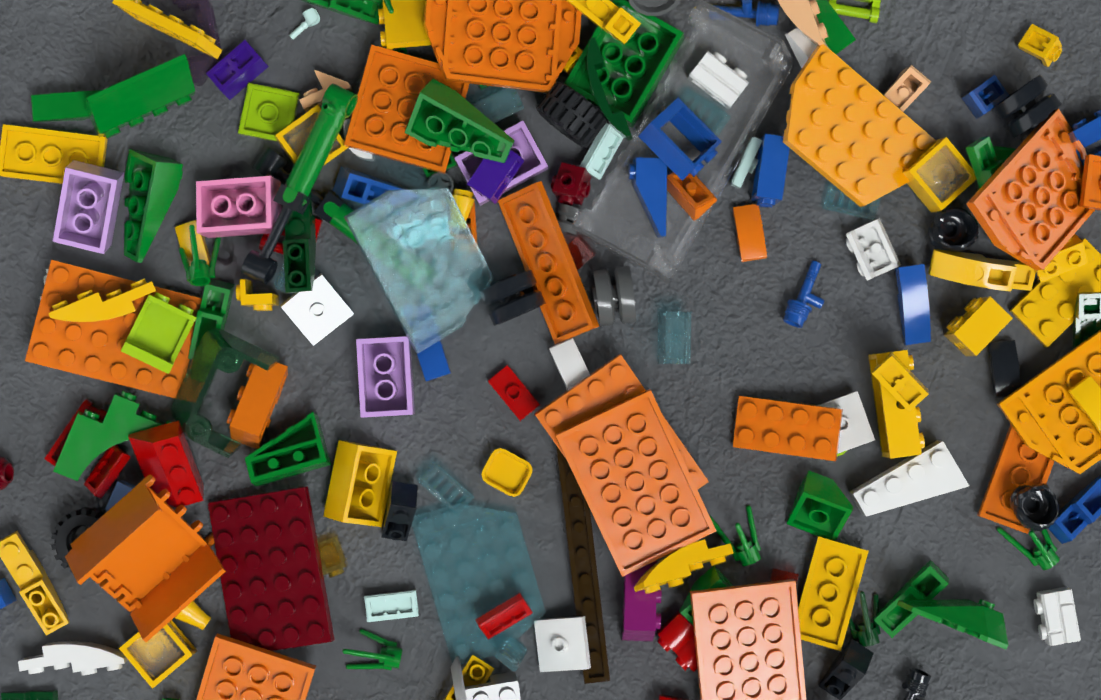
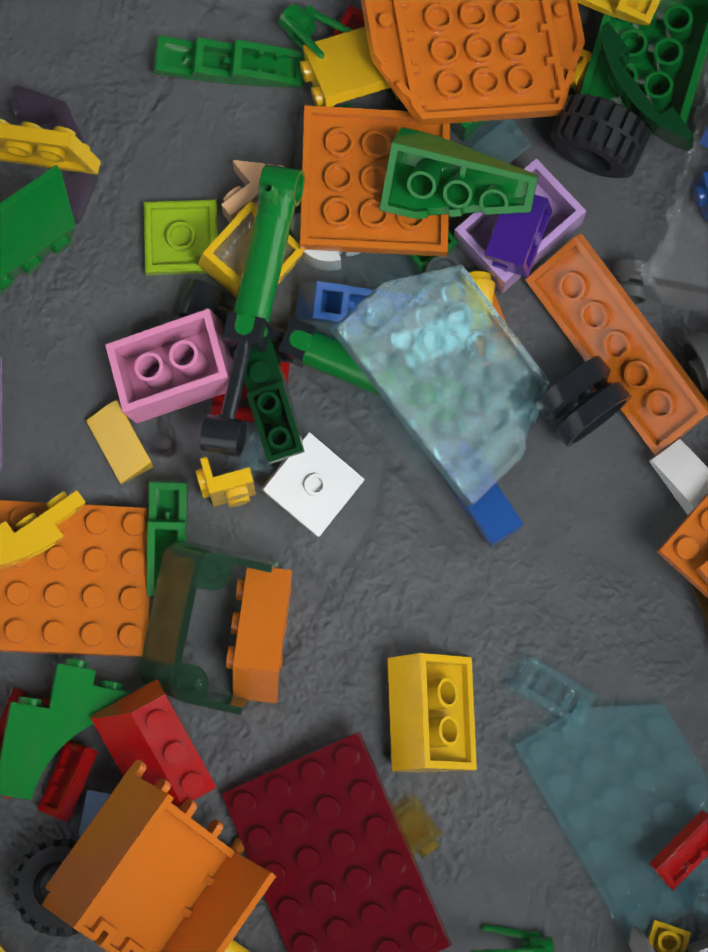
camera: 15 degrees left, 10 degrees down
(152, 188) = (42, 379): green wedge -> none
(159, 332) = (100, 563): lime panel -> none
(199, 272) = (137, 468): green plant -> none
(237, 70) = (125, 187): dark purple hinge -> none
(290, 454) = (324, 693): green wedge -> none
(312, 18) = (211, 100): light aqua hand -> none
(385, 376) = (432, 552): lavender brick -> none
(391, 605) = (520, 878): light aqua plate -> none
(399, 511) = (498, 738): black slope -> none
(507, 472) = (636, 646): yellow piece -> none
(513, 393) = (615, 536): red plate -> none
(571, 184) = (621, 231): dark red brick -> none
(580, 251) = (659, 318): clear red plate -> none
(601, 151) = (650, 181): light aqua plate -> none

